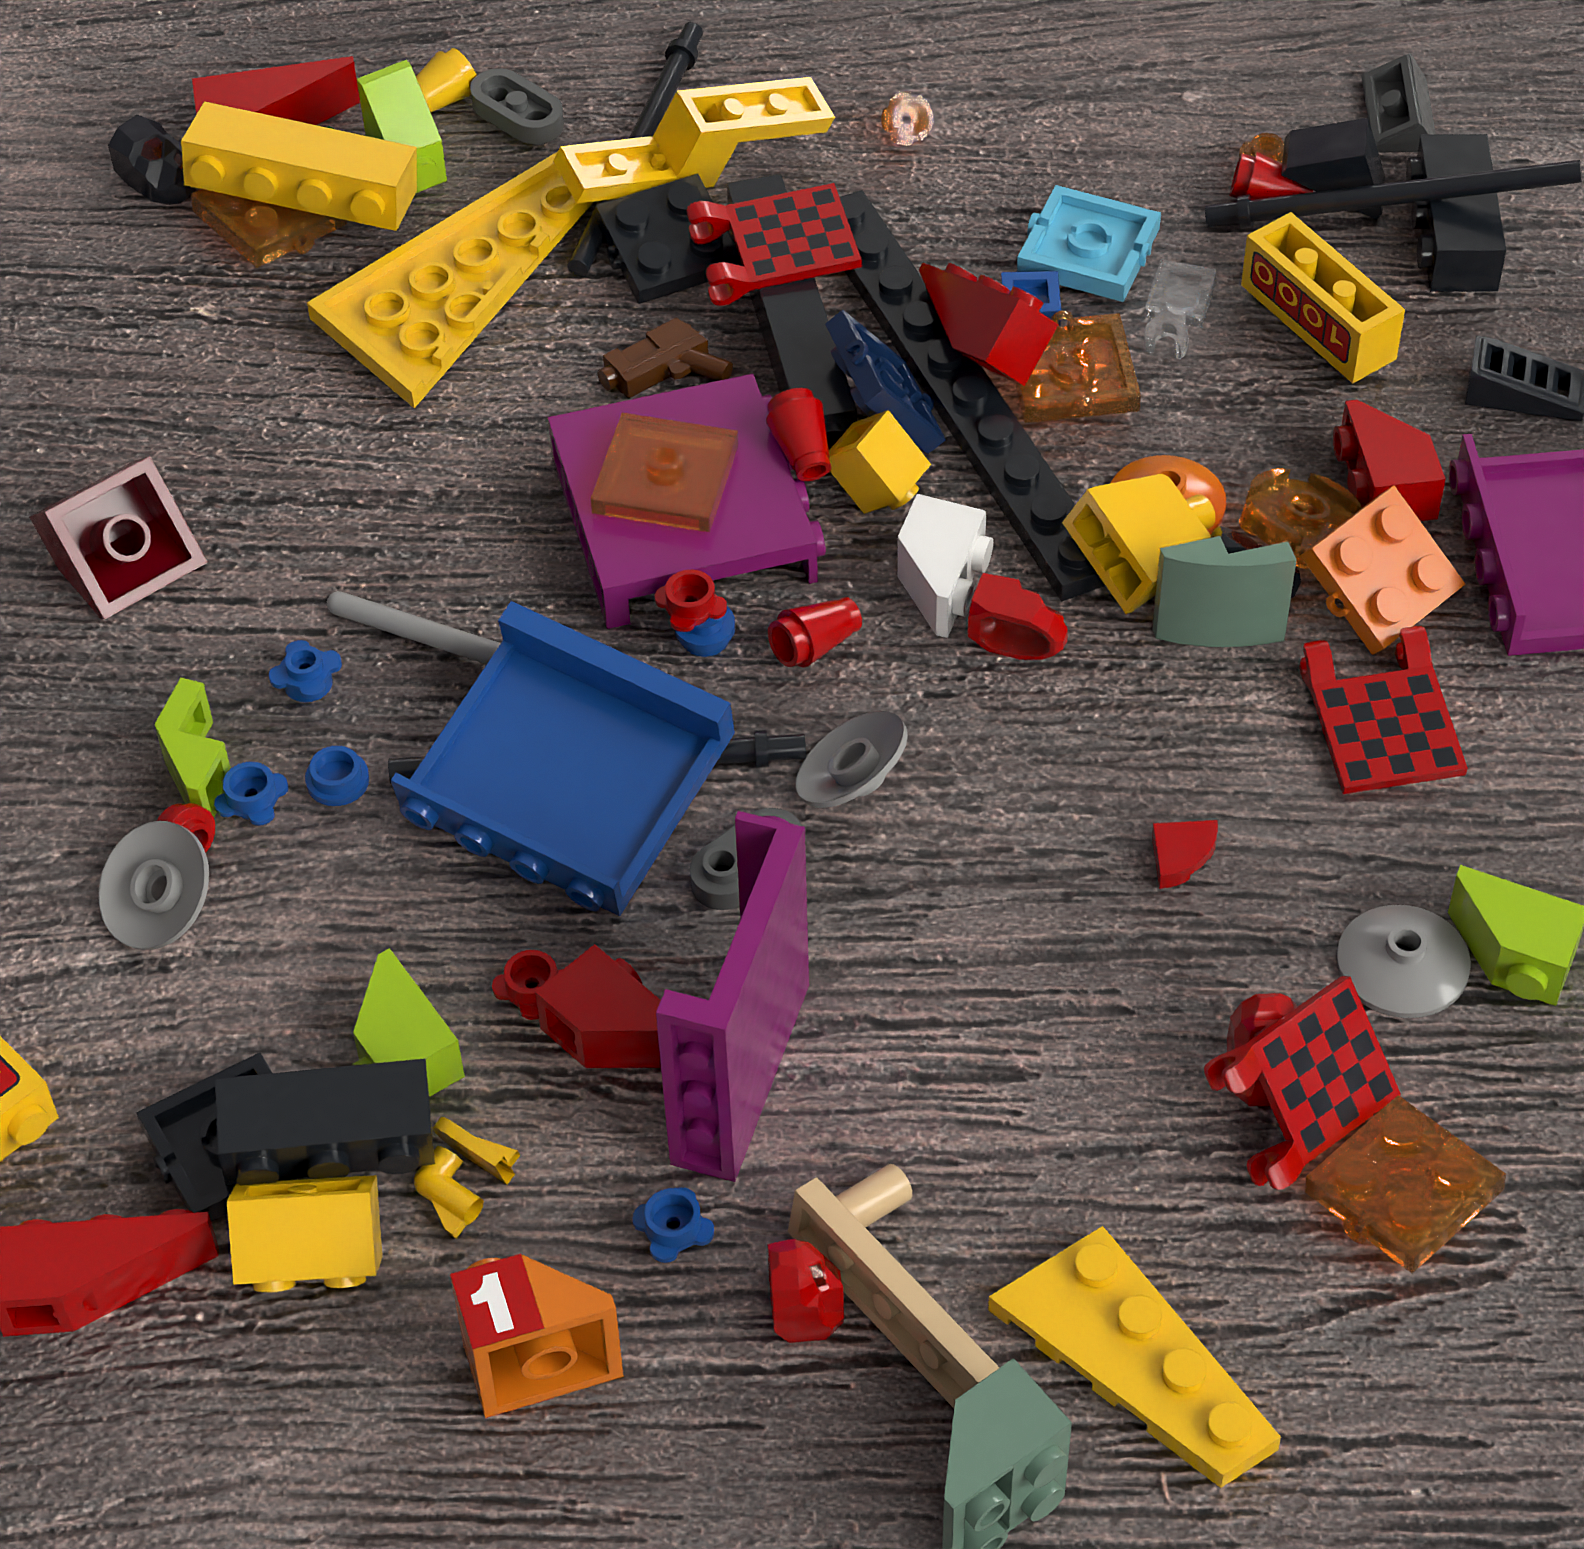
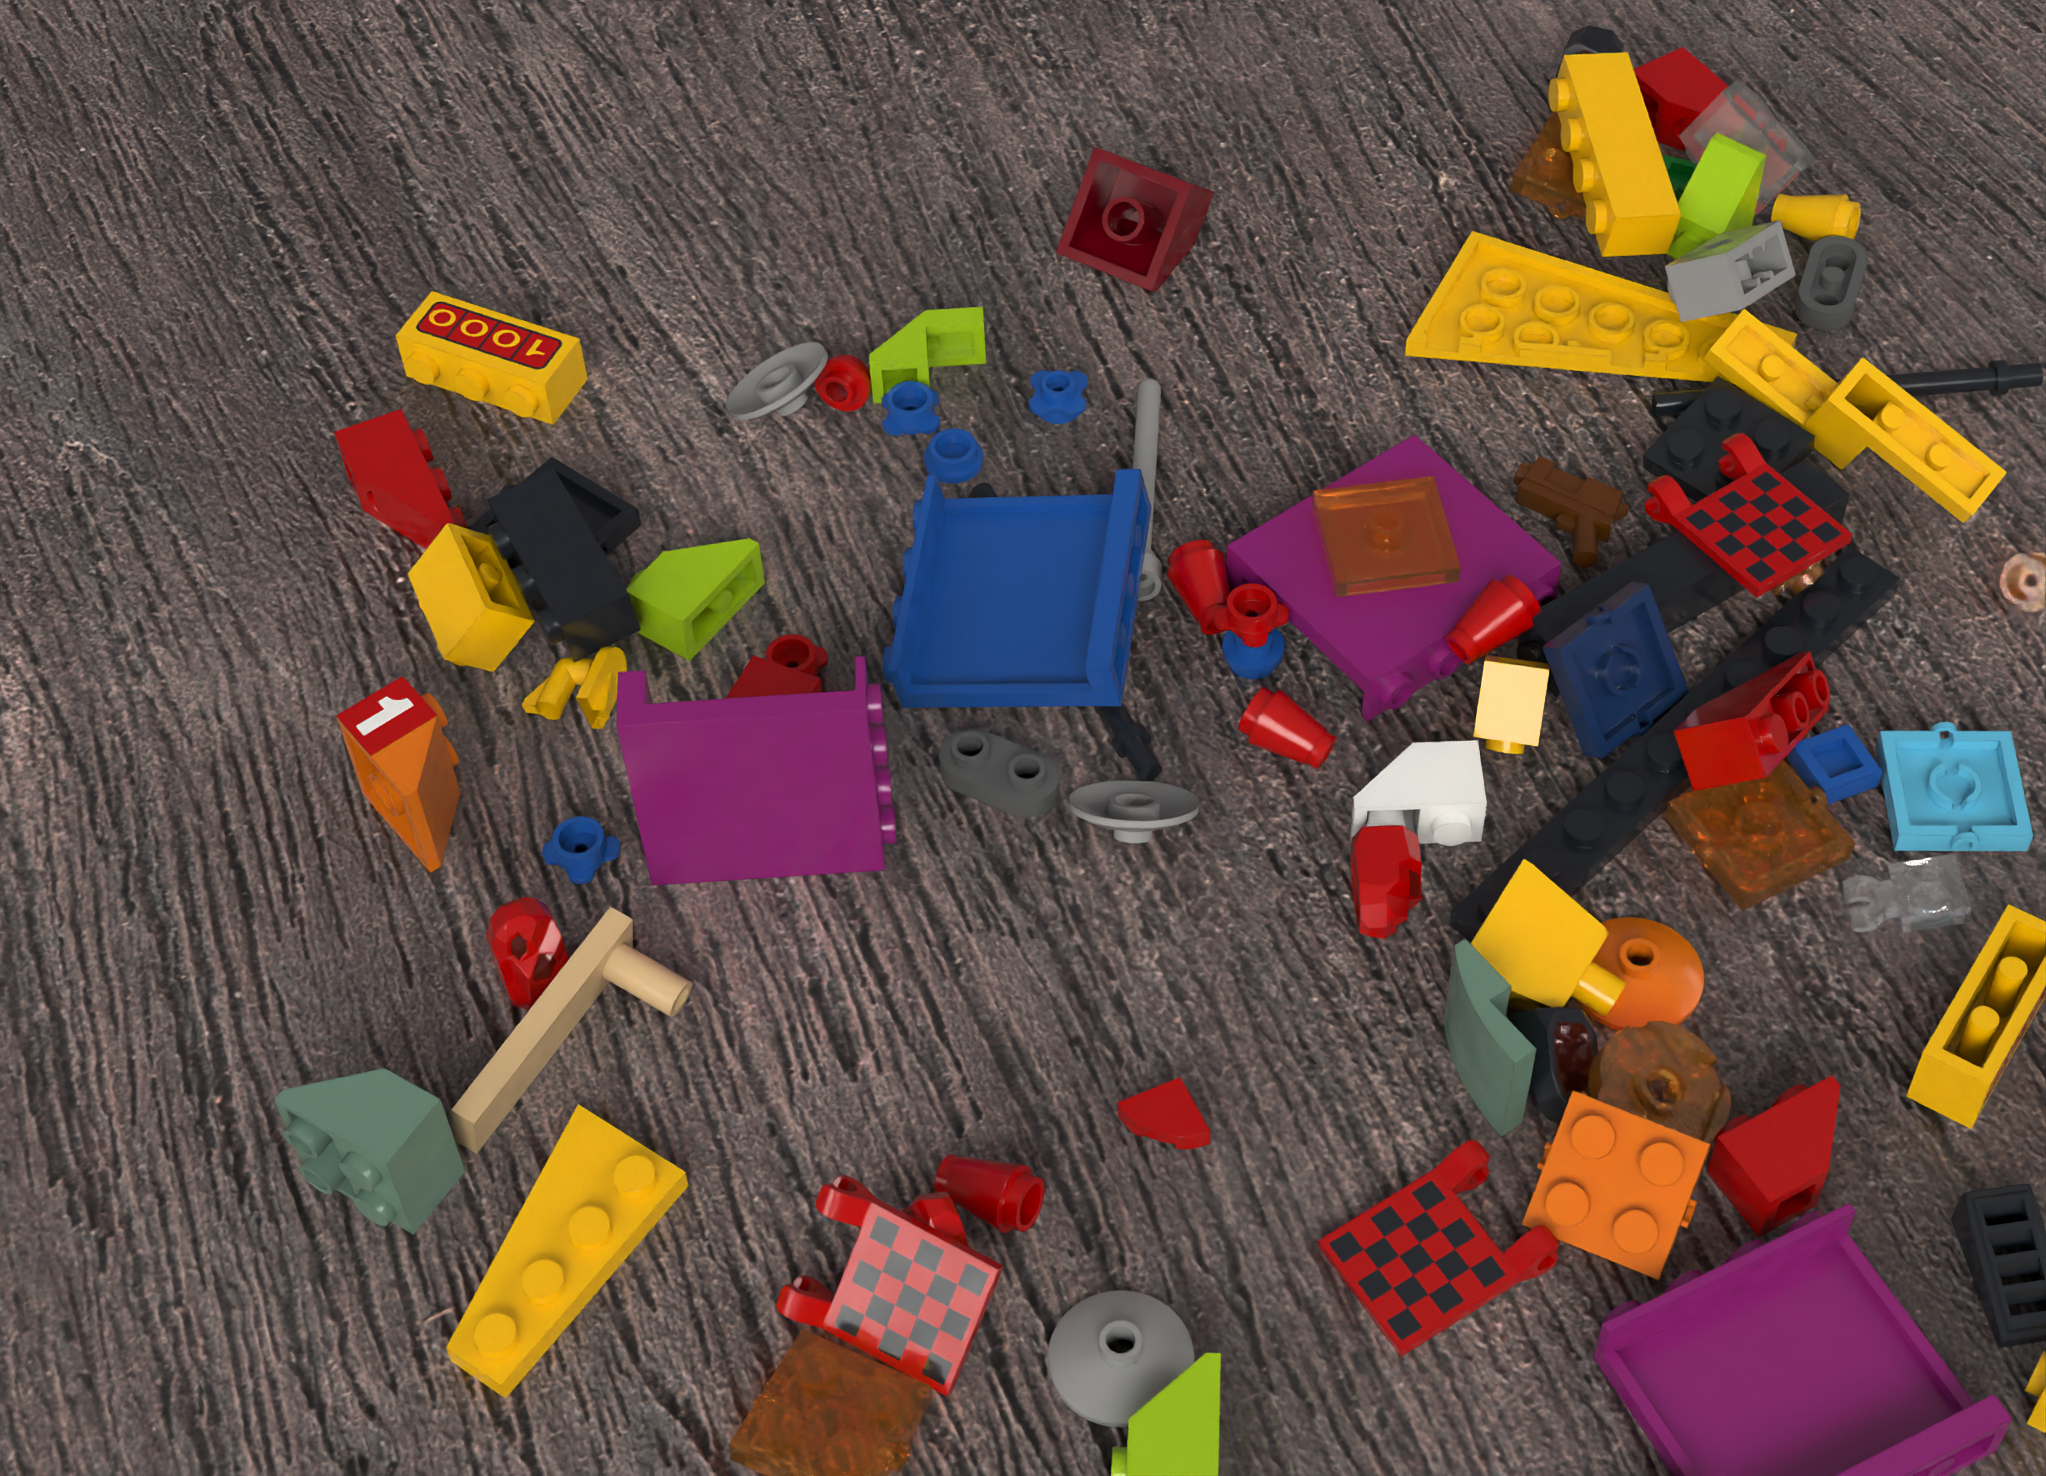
camera: 70 degrees right, 0 degrees up
(326, 82) = (1748, 120): none -> clear brick
(497, 146) = (1729, 271): none -> light grey brick
(622, 630) = (1200, 580): none -> red cone
(1215, 992) = (992, 1190): none -> red cone

